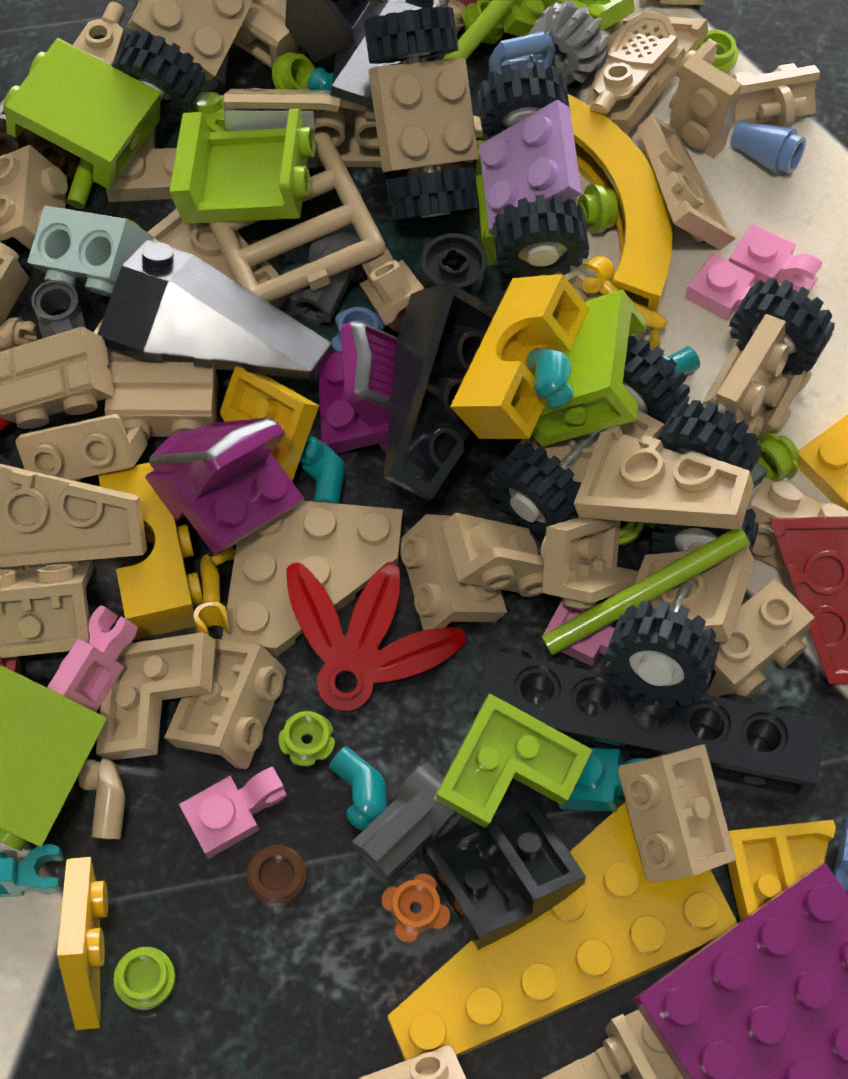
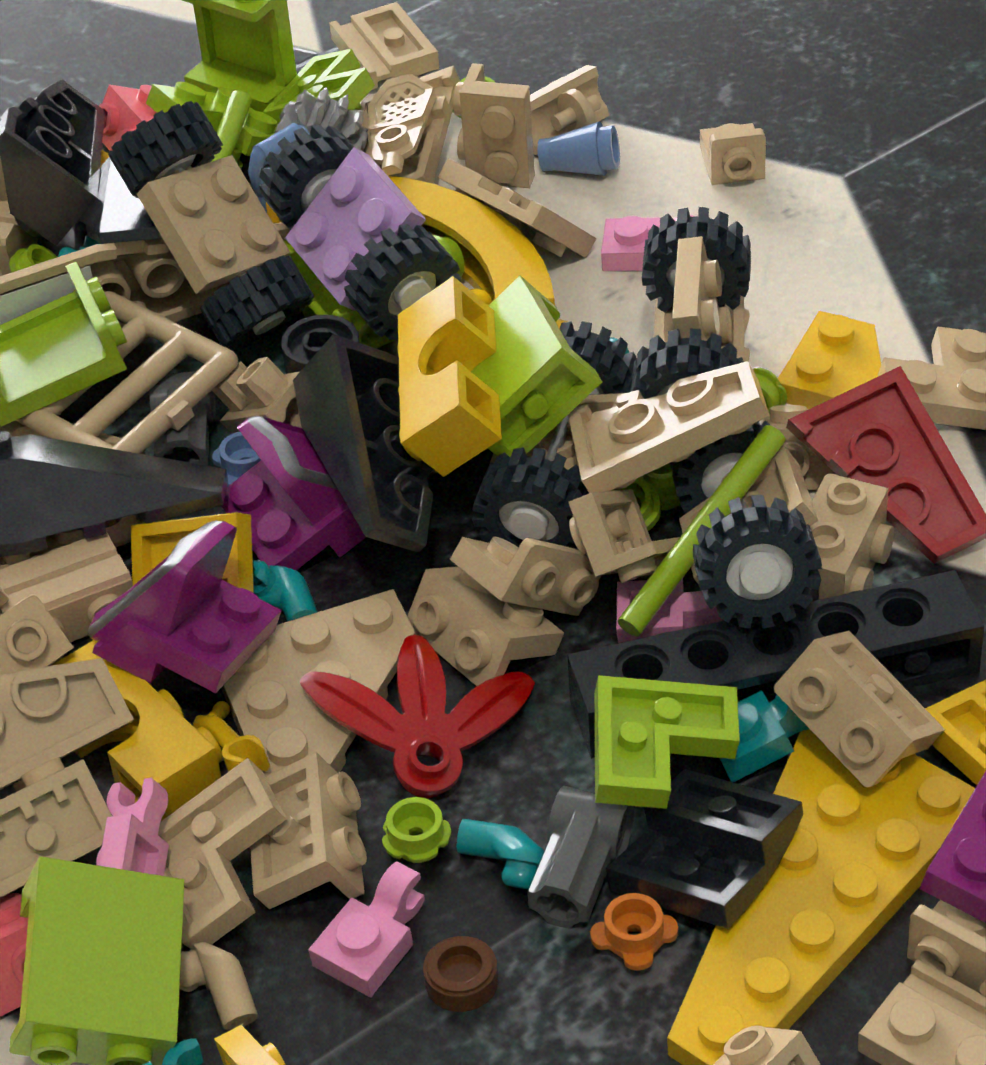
camera: 20 degrees left, 20 degrees down
(551, 373) = (495, 368): teal arm -> none
(719, 286) = (608, 283): bright pink plate -> none

